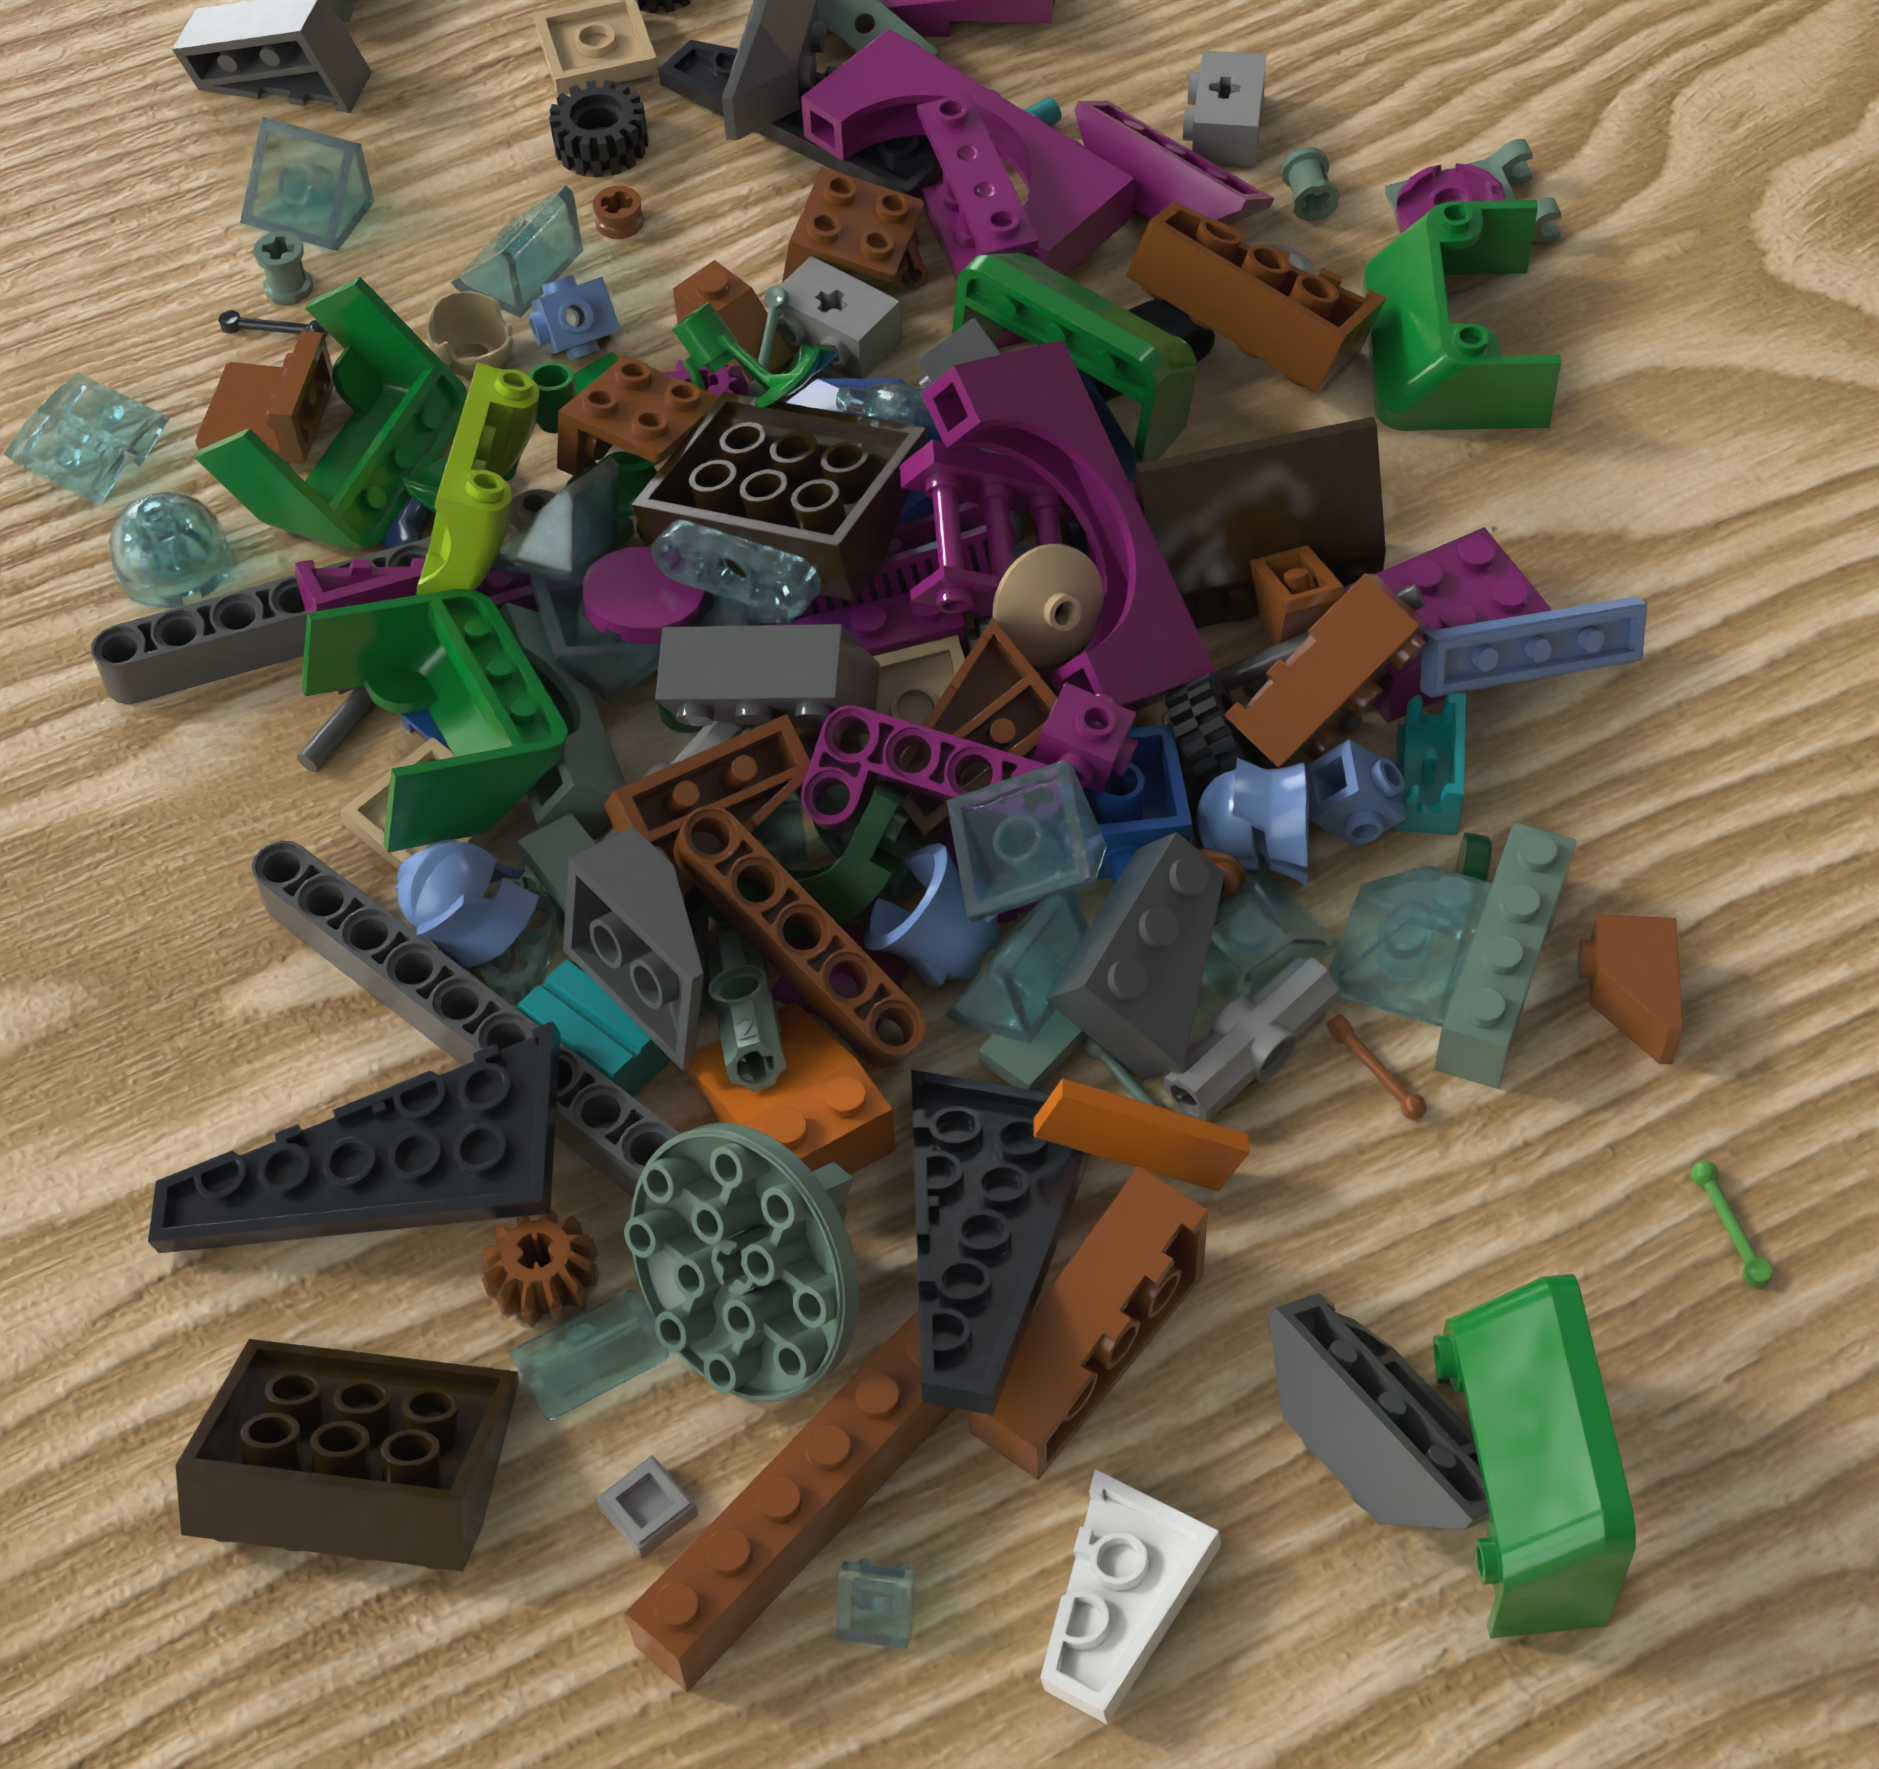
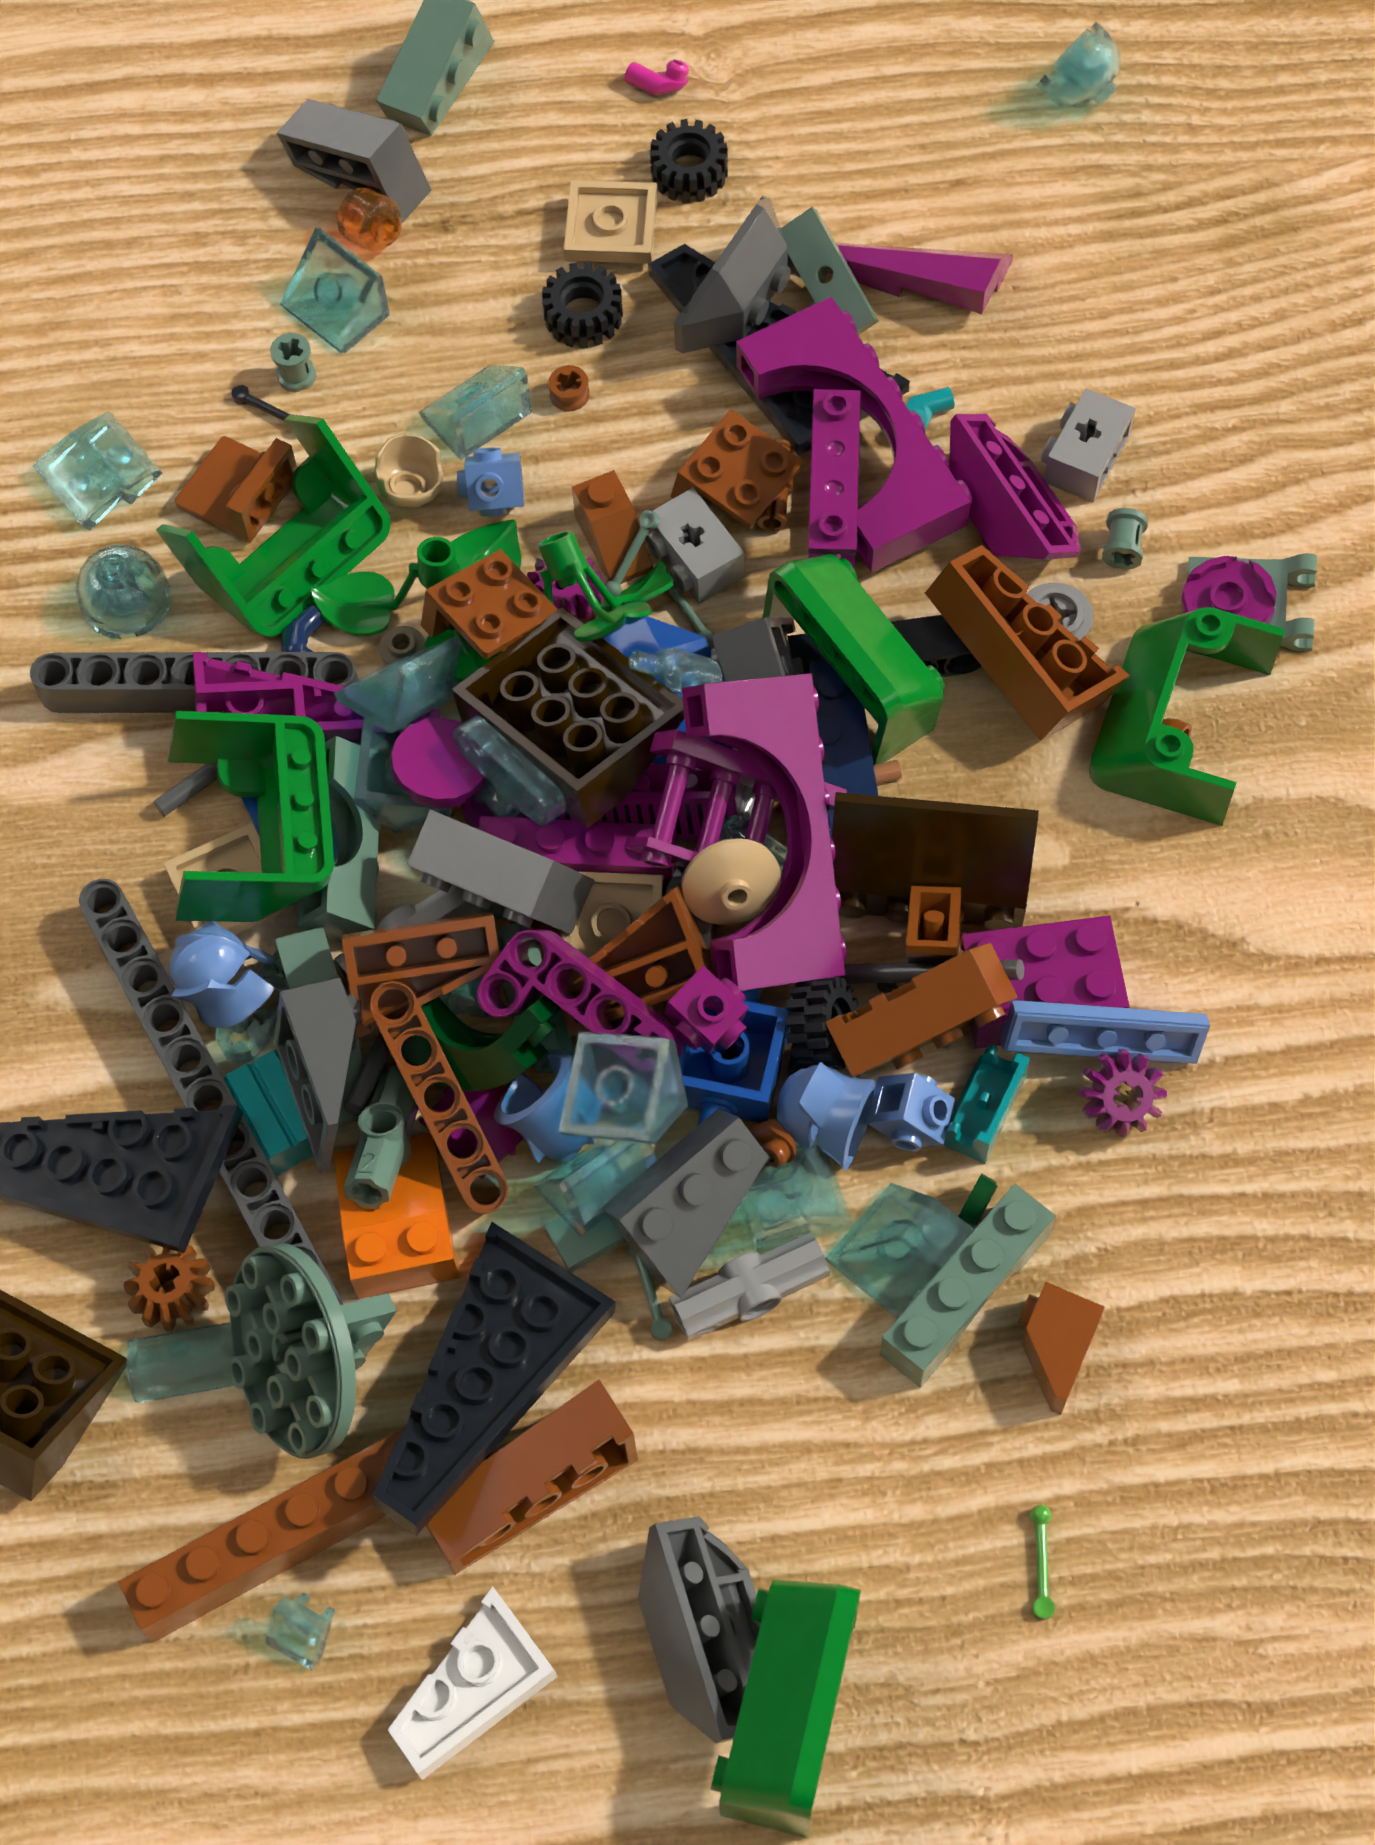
camera: 20 degrees right, 10 degrees up
(316, 104) = (369, 219): none -> clear orange head
(472, 495) = (325, 655): lime piece -> none
(647, 1506) = (176, 1495): light grey tile -> none
(1141, 1135) = (625, 1343): orange tile -> none
(1412, 1105) = (848, 1380): dark orange hinge -> none
(1588, 680) = (1142, 1093): none -> magenta gear

